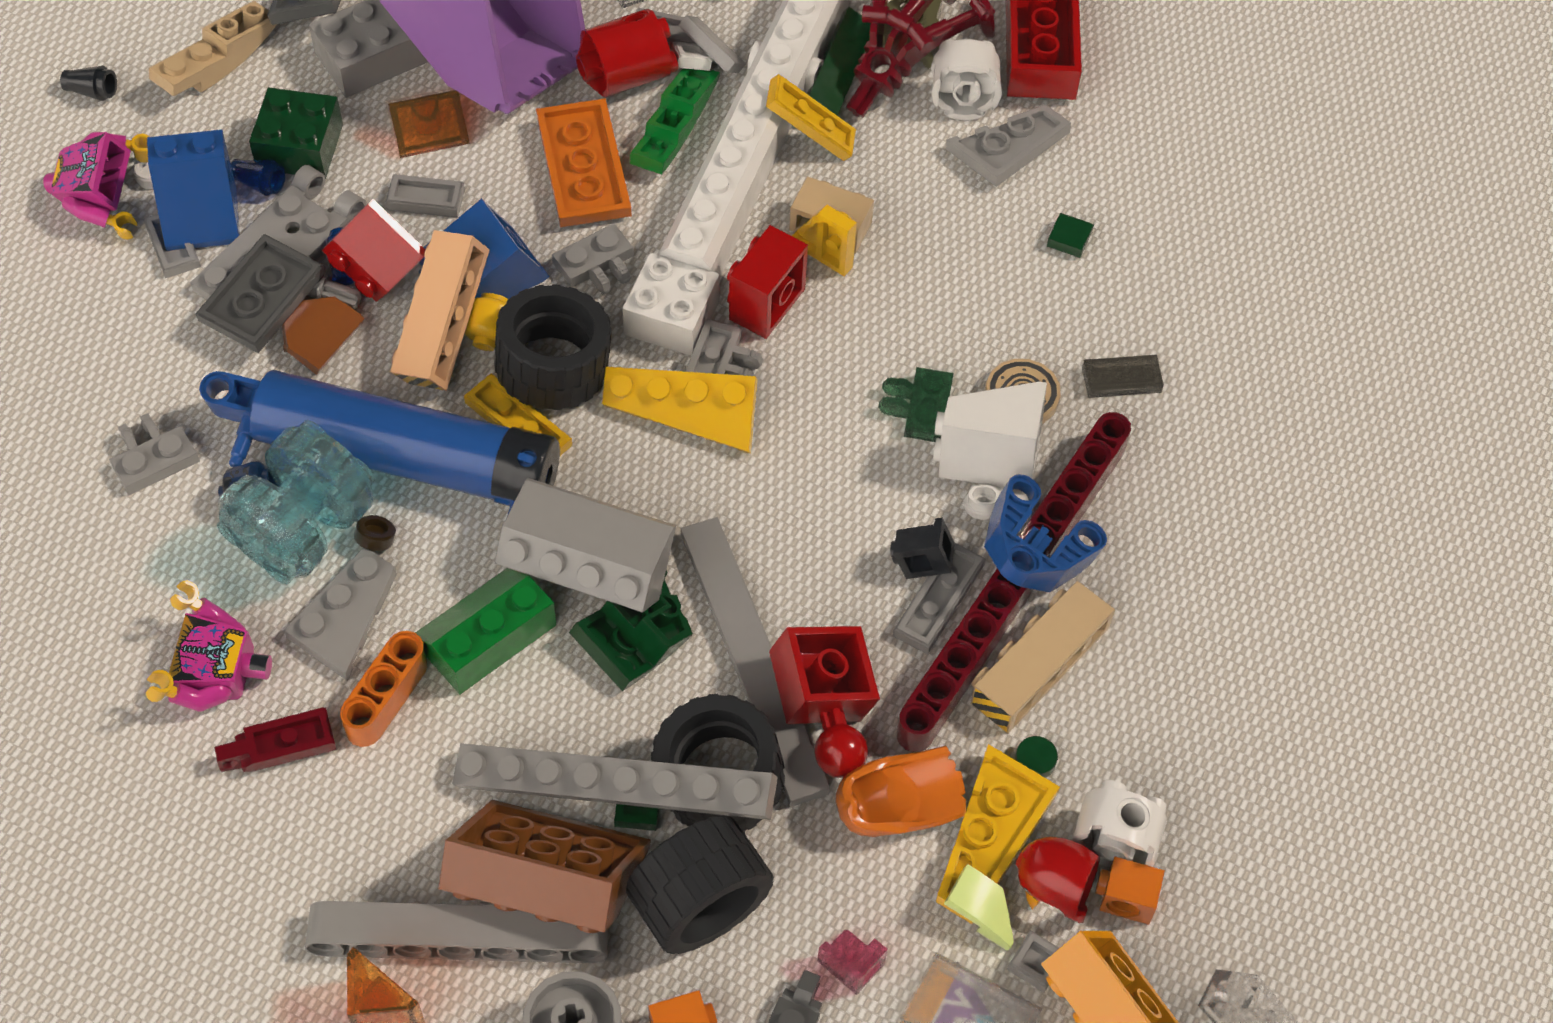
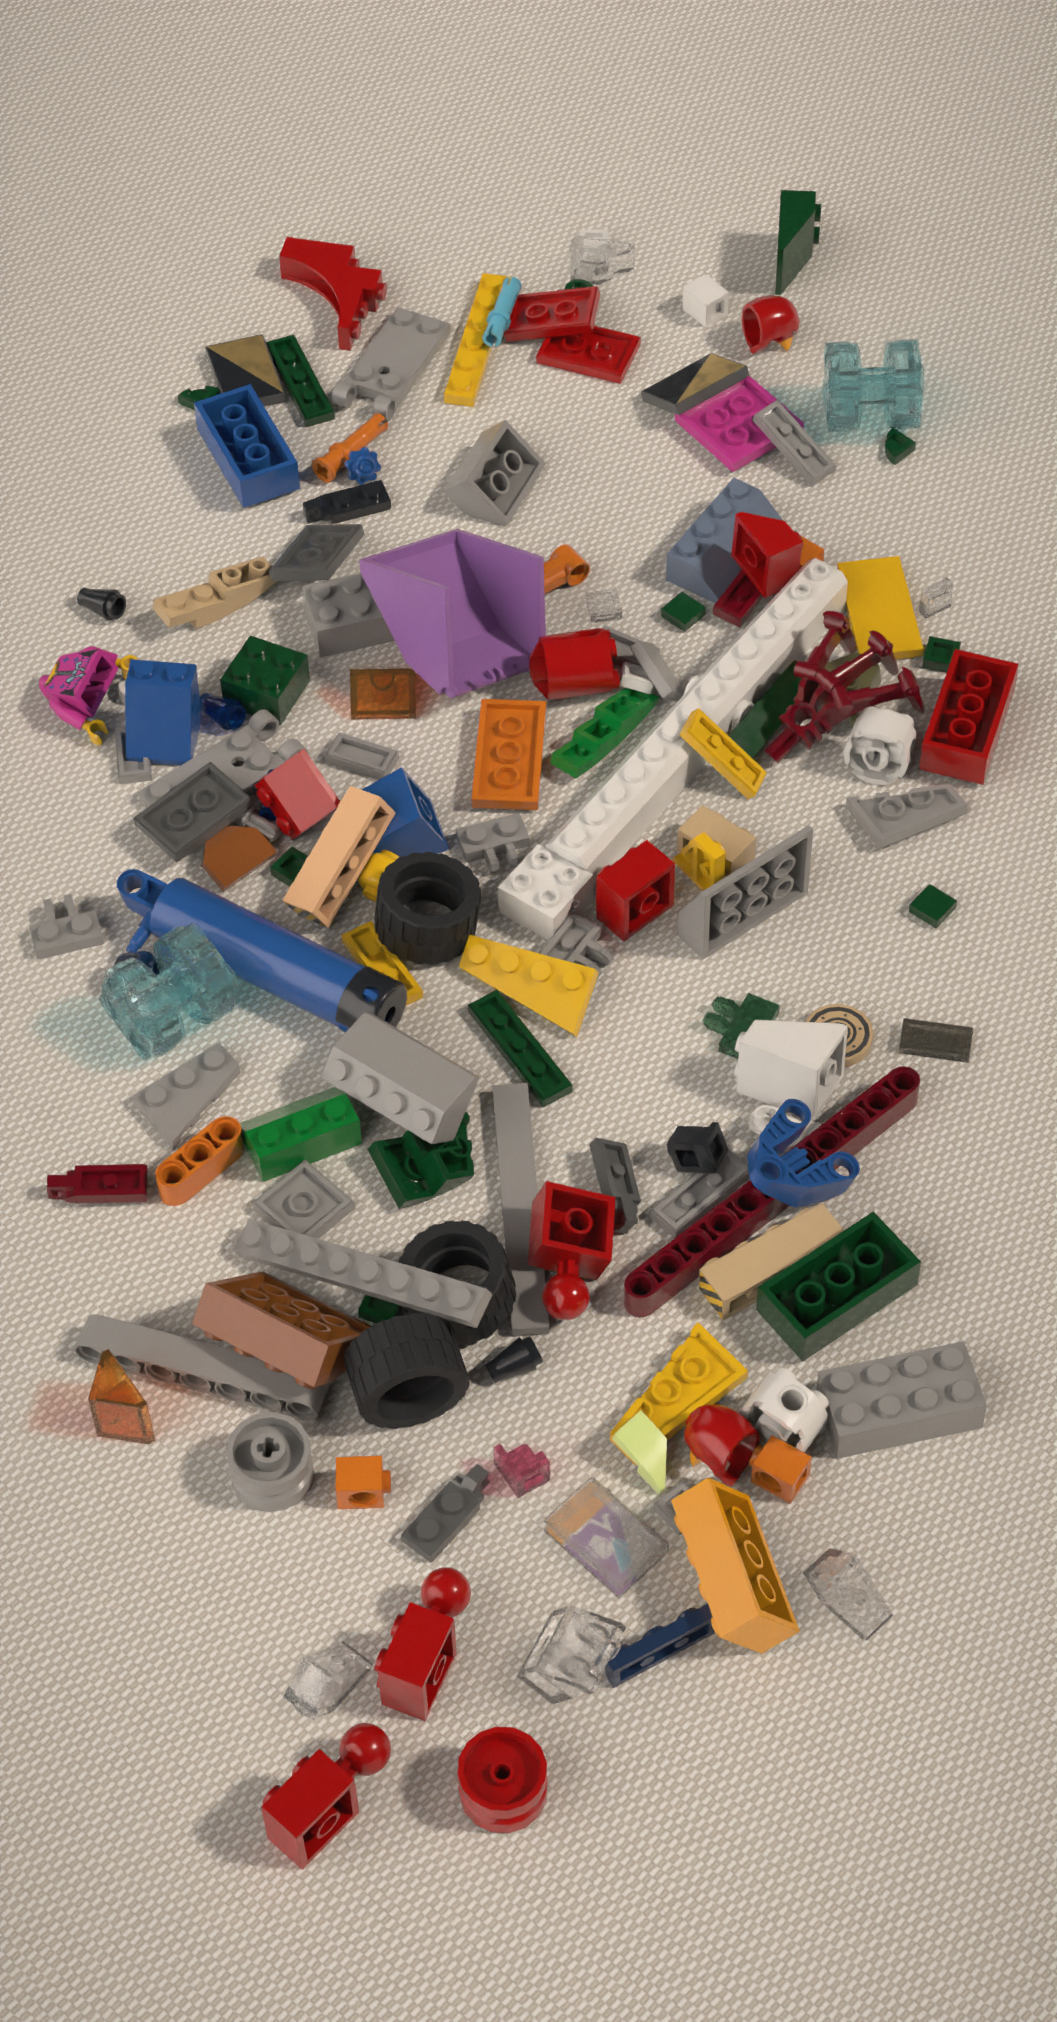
camera: 20 degrees right, 5 degrees down
(209, 658) = (64, 1104): torso -> none
(374, 533) = (230, 1033): dark brown tile -> none
(384, 332) = (288, 866): none -> dark green tile
(514, 709) = (304, 1202): none -> light grey tile
(695, 479) = (520, 1048): none -> dark green tile
(807, 834) = (514, 1360): none -> black cone
(848, 602) = (617, 1180): none -> dark grey hinge
(885, 263) = (747, 896): none -> light grey slope
(902, 794) = (607, 1343): orange hair -> none
(1038, 755) = (740, 1342): dark green tile -> none
(1122, 669) = (838, 1286): none -> dark green brick
(1231, 778) = (901, 1399): none -> light grey brick

